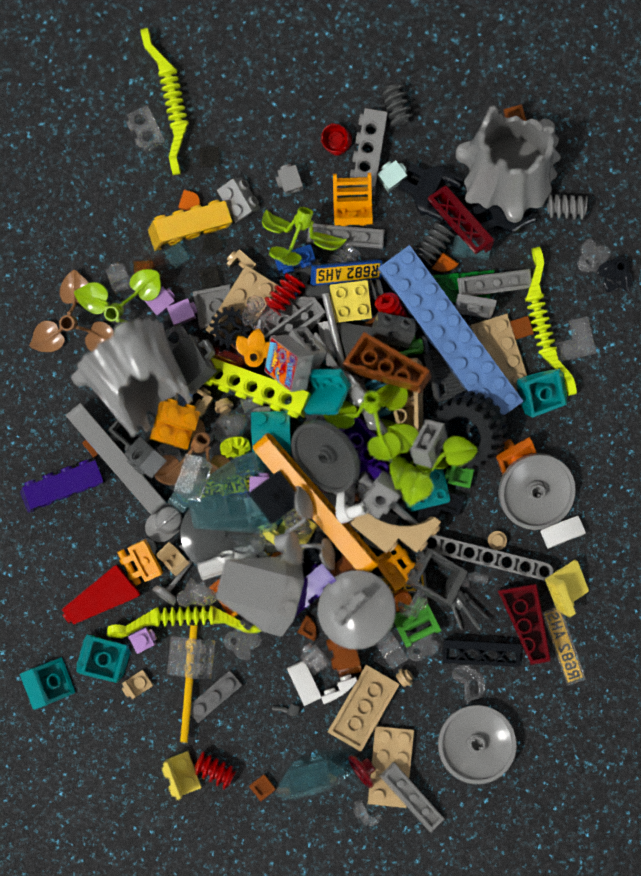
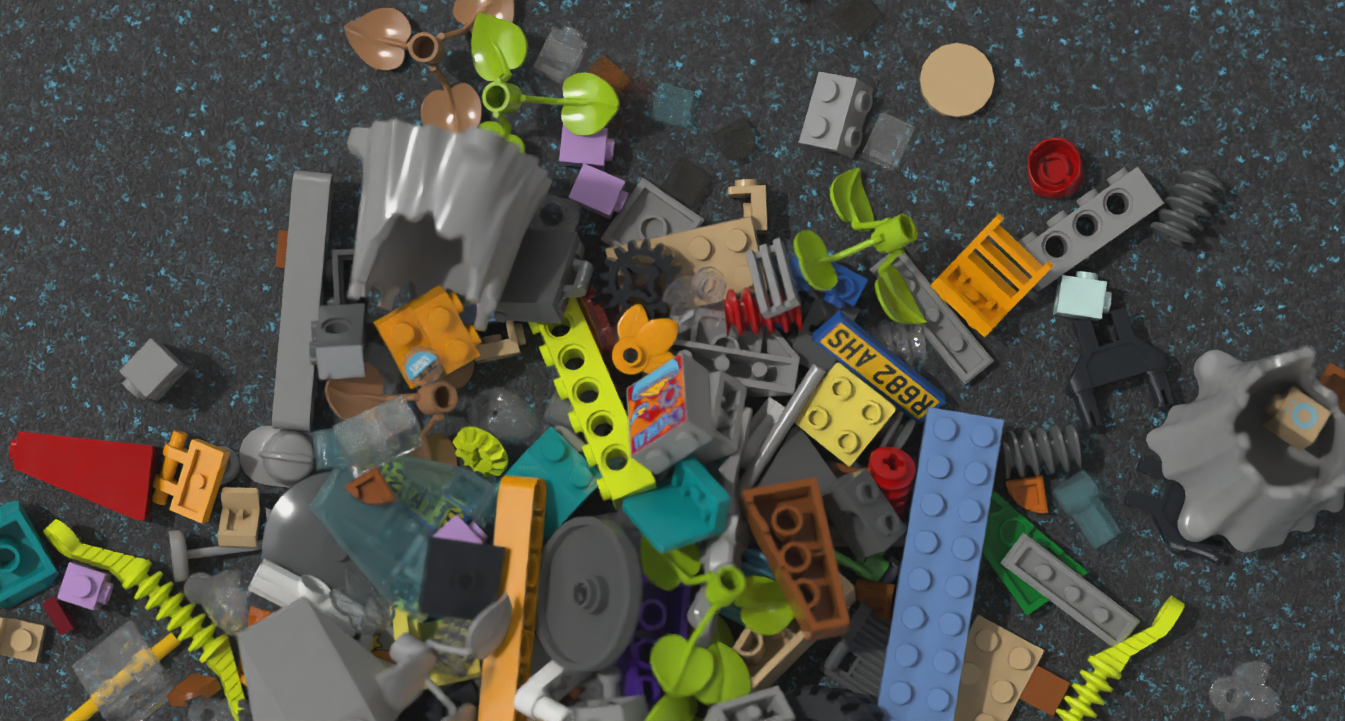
camera: 40 degrees right, 0 degrees up
(61, 485) = (191, 261): dark purple wedge -> none
(88, 538) = (152, 371): none -> light grey brick
(145, 660) = (60, 615): none -> dark red tile
(183, 436) = (422, 366): none -> tile
(188, 200) = (765, 48): orange tile -> none
(189, 223) = (733, 80): yellow wedge -> none
(210, 498) = (371, 489): none -> dark orange tile
(218, 636) = (193, 687): none -> dark orange tile
(223, 406) = (523, 378): tan plate -> none
(264, 271) = (758, 280): none -> light grey tile
(267, 190) = (887, 141): none -> clear panel
(269, 143) = (956, 80): none -> tan tile
(289, 179) = (933, 158): light grey brick -> none
(428, 354) = (876, 596): none -> dark orange tile
(463, 217) = (1119, 457): dark red fence -> none
(475, 306) = (1009, 595): light grey tile -> none
(511, 139) = (1295, 418): none -> tan brick
(567, 206) = (1279, 587): light grey piece -> none

